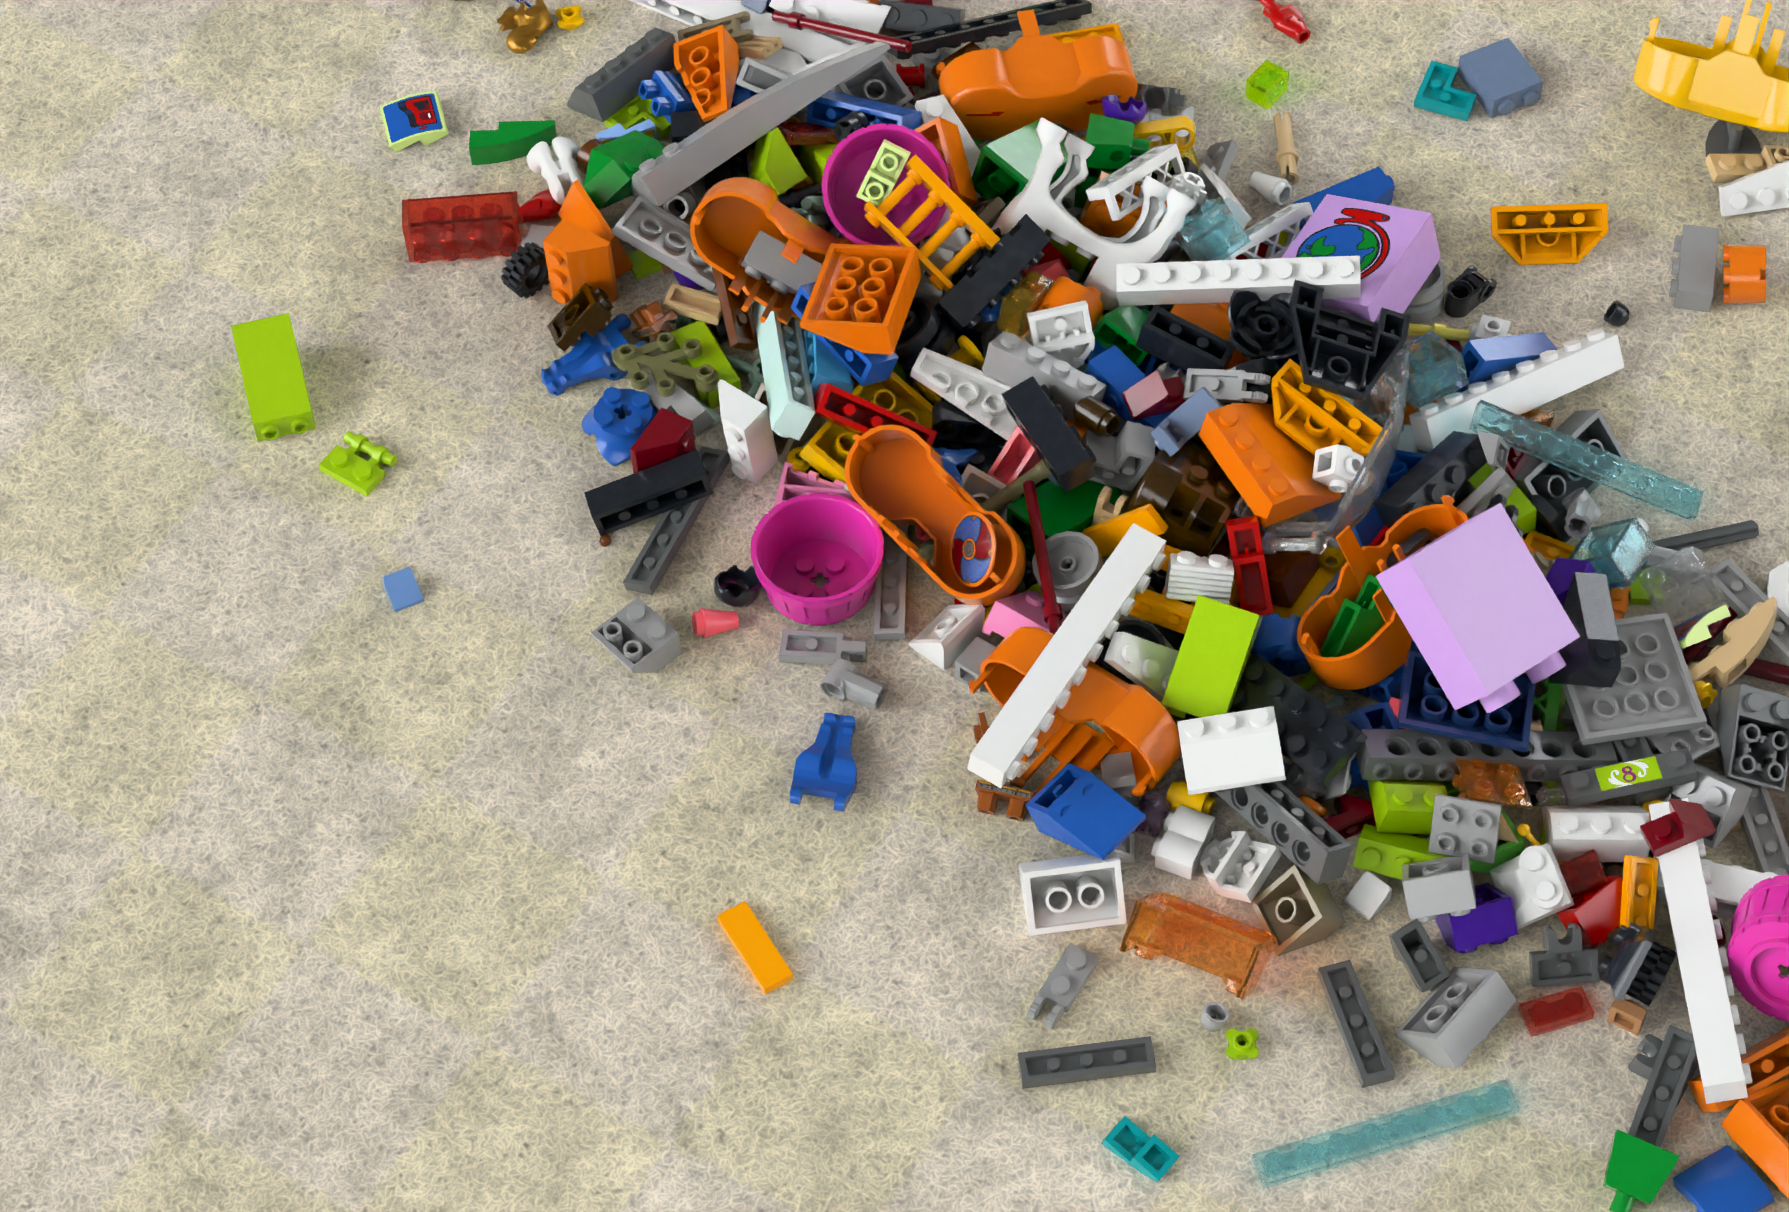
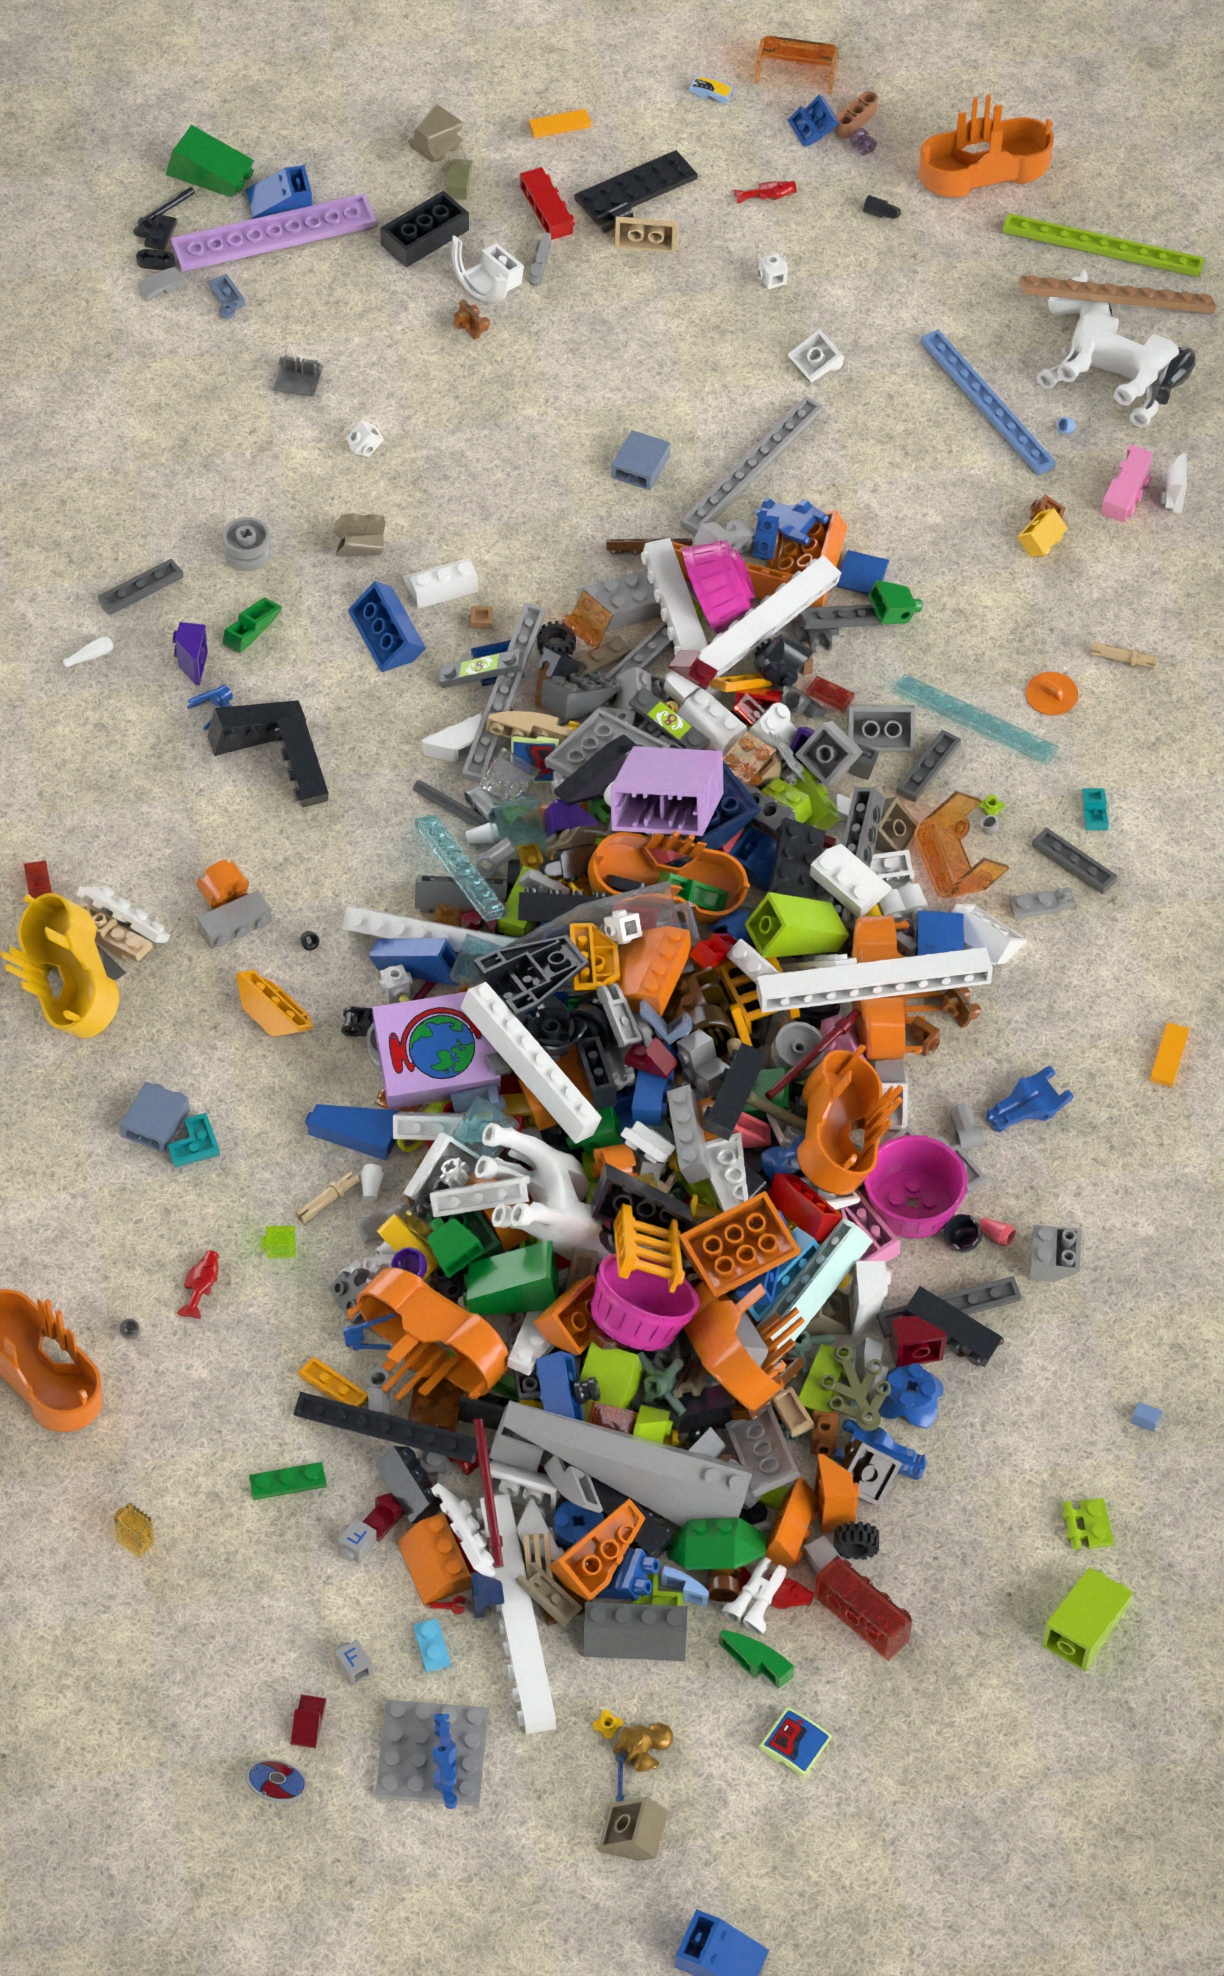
camera: 135 degrees left, 0 degrees up
(883, 173) = (648, 1283): yellowish green slope -> none
(973, 549) = (853, 1092): shield -> none
(1096, 416) = (699, 1075): dark brown brick -> none
(1495, 449) = (516, 885): light grey slope -> none

